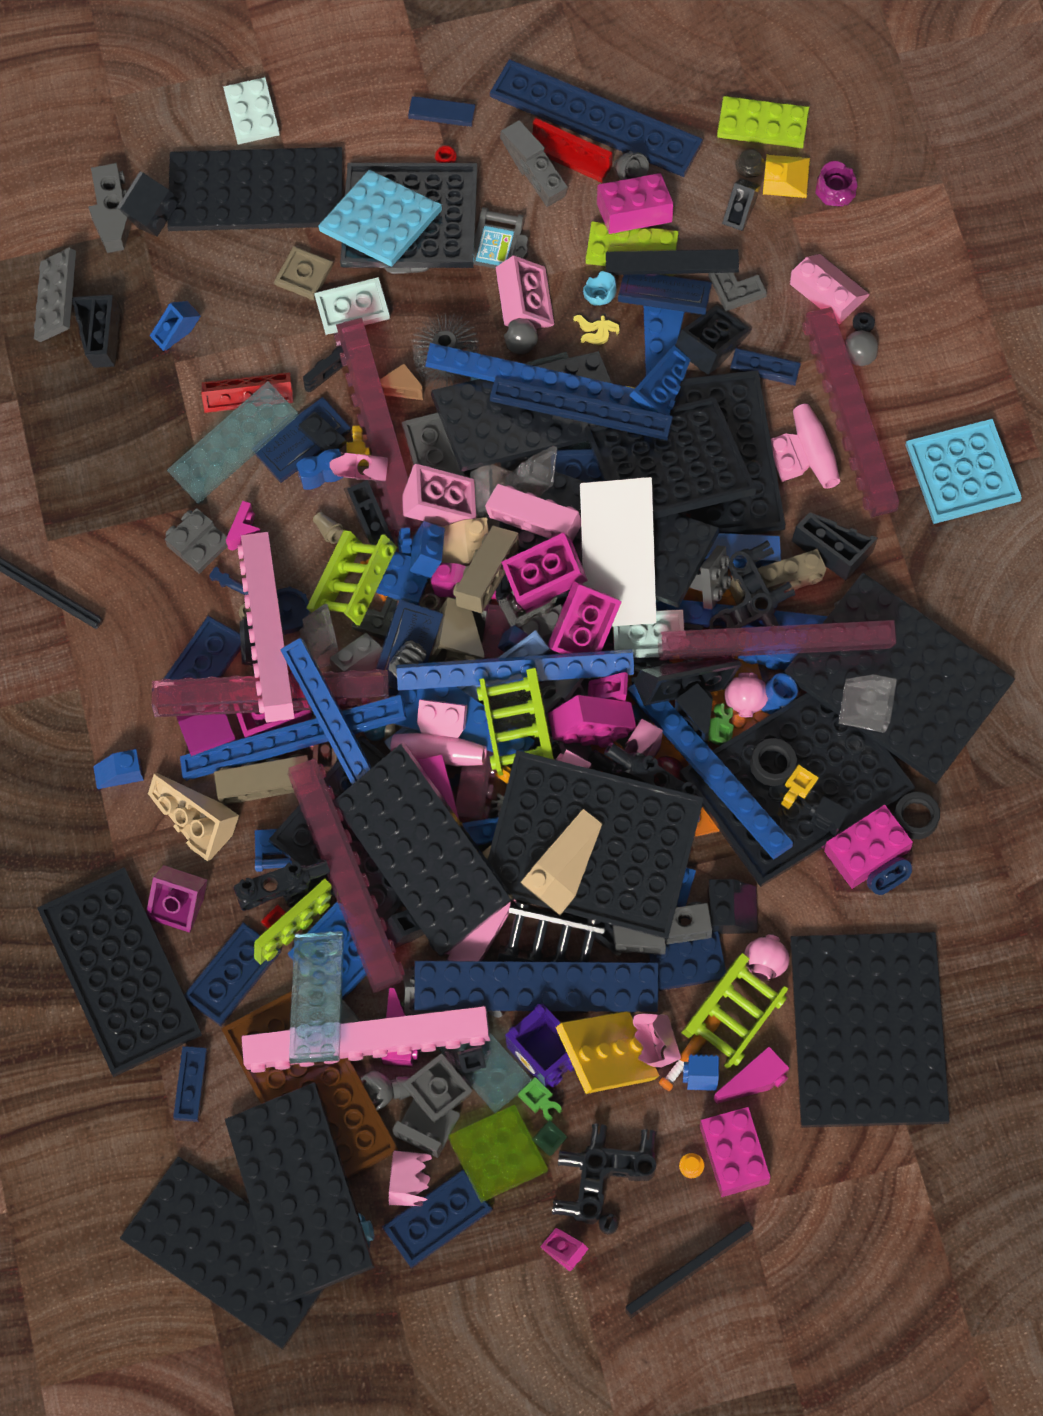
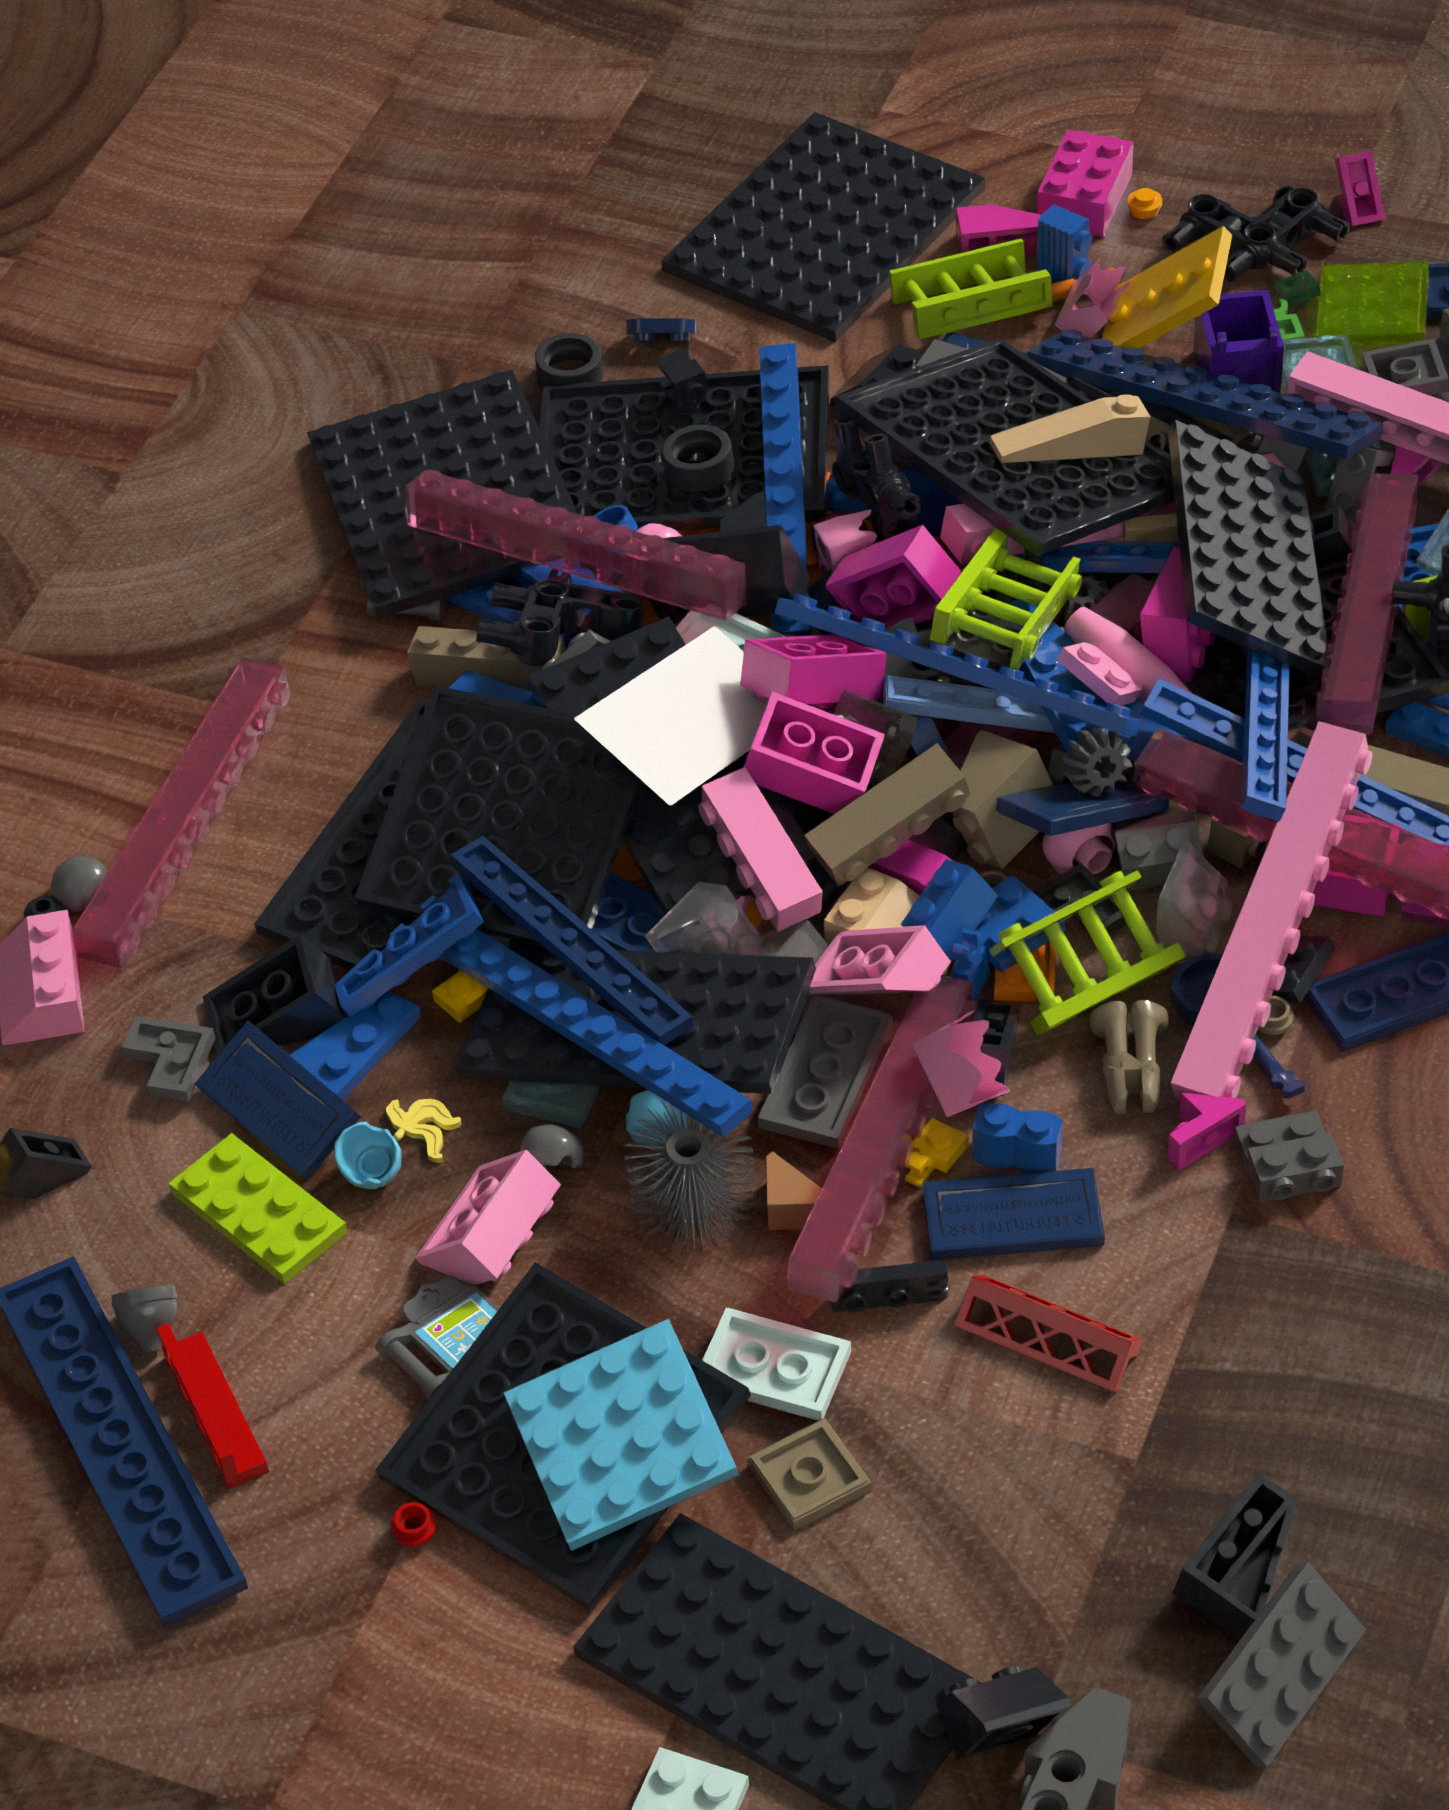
camera: 145 degrees left, 20 degrees down
(175, 324) = (1095, 1498): blue slope -> none
(232, 442) = (1131, 1249): clear light blue plate -> none
(297, 538) = (1121, 1070): none -> dark tan piece
(321, 433) = (977, 1187): black plate -> none
(328, 527) = (1066, 1057): dark tan cone -> none
(441, 111) = (350, 1612): dark blue tile -> none
(533, 163) = (289, 1399): dark grey brick -> none
(609, 687) = (835, 589): dark pink slope -> none
(634, 203) = (197, 1238): dark pink brick -> none
(672, 262) = (228, 1126): black tile -> none
(689, 1270) = (1226, 121): black tile -> none
(767, 366) = (228, 930): dark blue tile -> none
(767, 957) = (883, 321): bright pink plant -> none
(800, 784) = (688, 416): yellow plate -> none
(807, 449) = (289, 795): bright pink plate -> none
(839, 547) = (373, 658): black wedge -> none
(867, 846) = (637, 343): dark pink brick -> none
(868, 702) = (520, 446): clear slope -> none
(963, 471) = (118, 669): medium azure plate -> none

